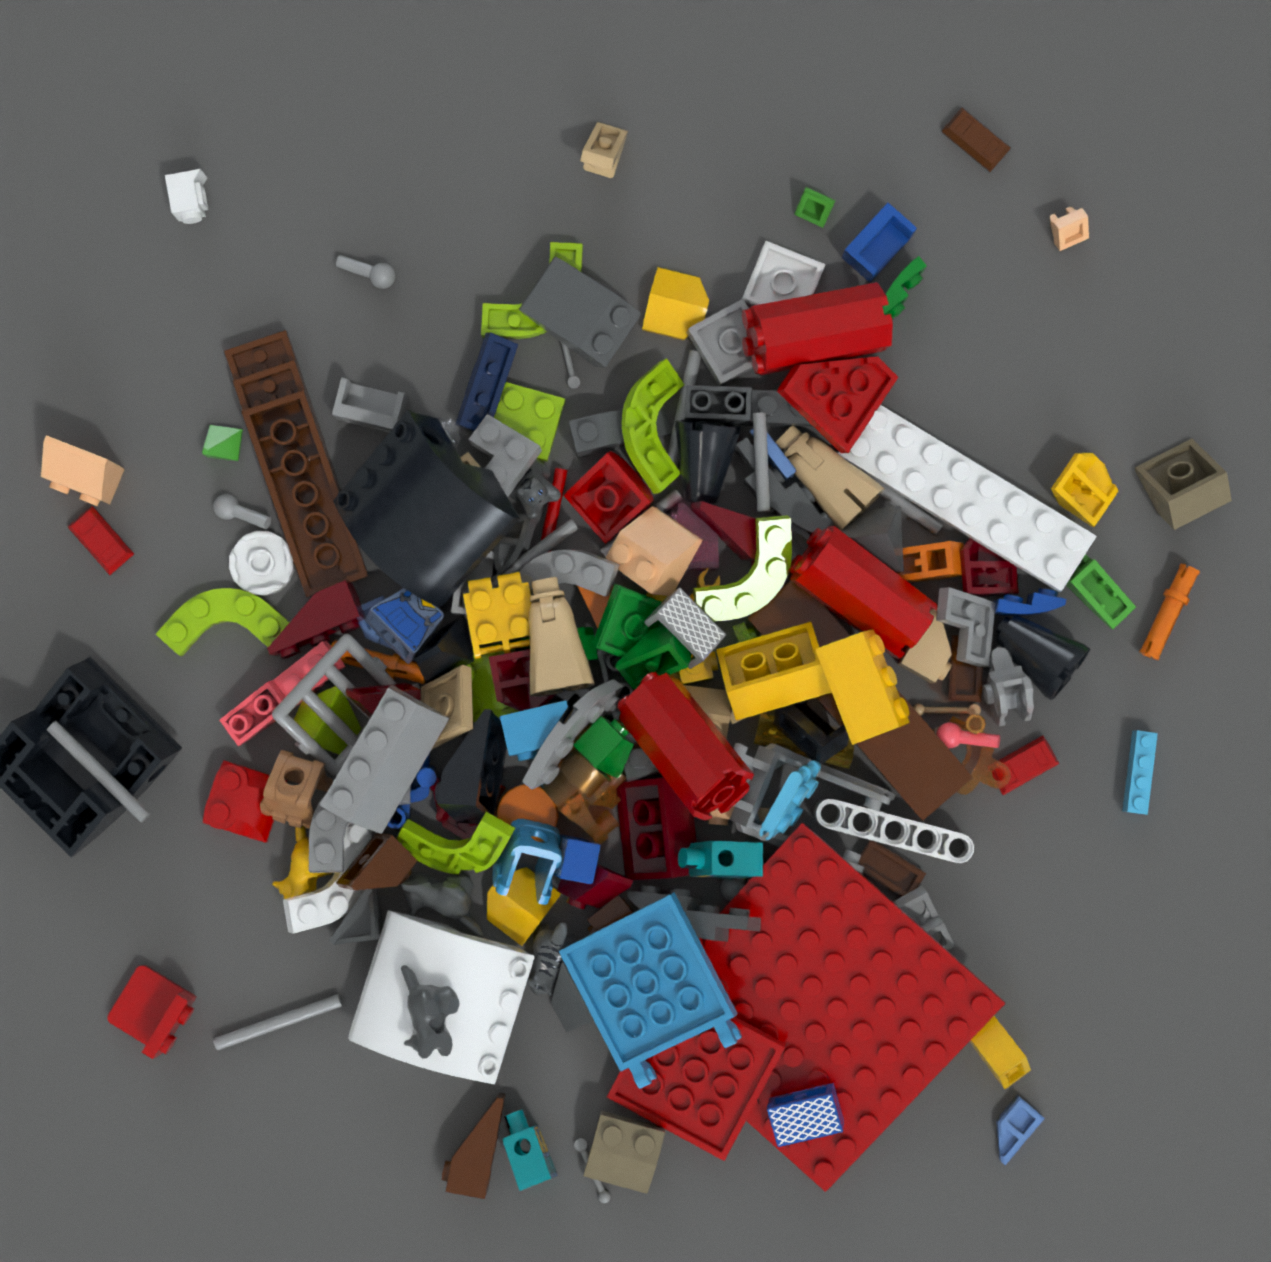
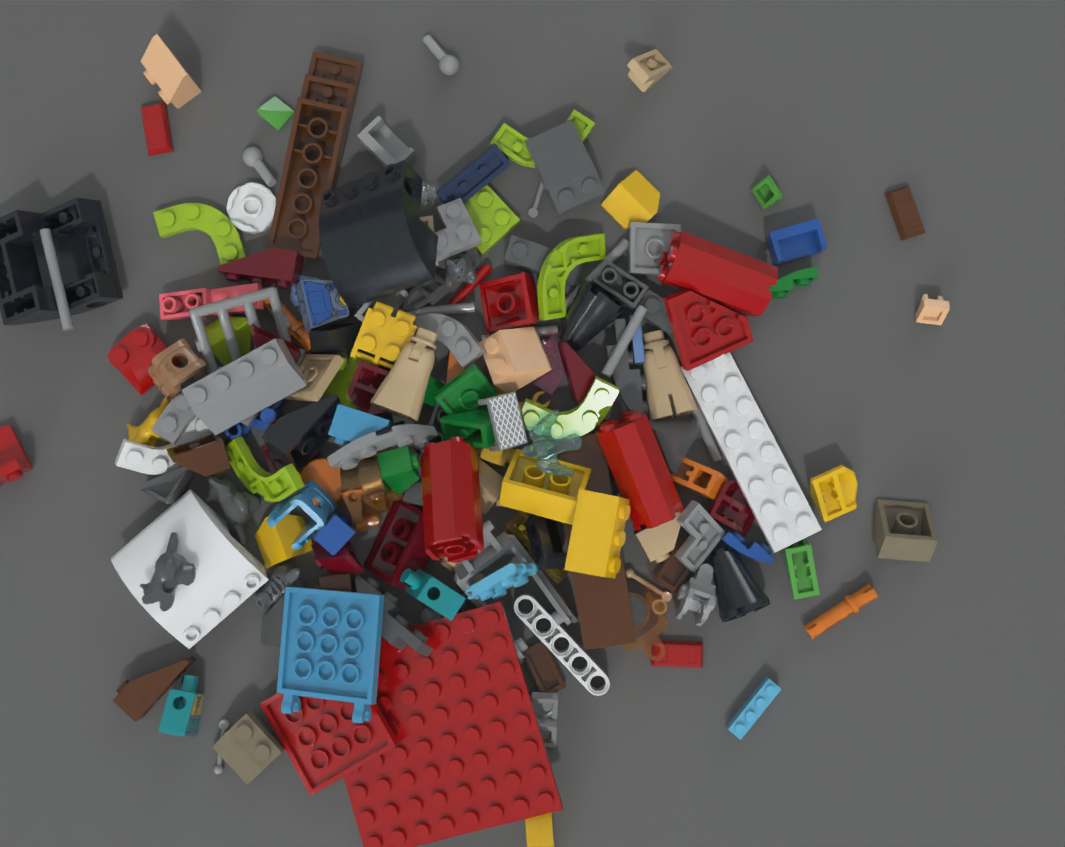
camera: 35 degrees right, 0 degrees up
(277, 1022) = (75, 518): light grey bar -> none
(750, 628) = (547, 448): none -> clear light blue animal
(781, 276) = (717, 224): white tile -> none
(805, 1115) = (382, 799): blue panel -> none
(952, 736) = (640, 605): coral bar -> none

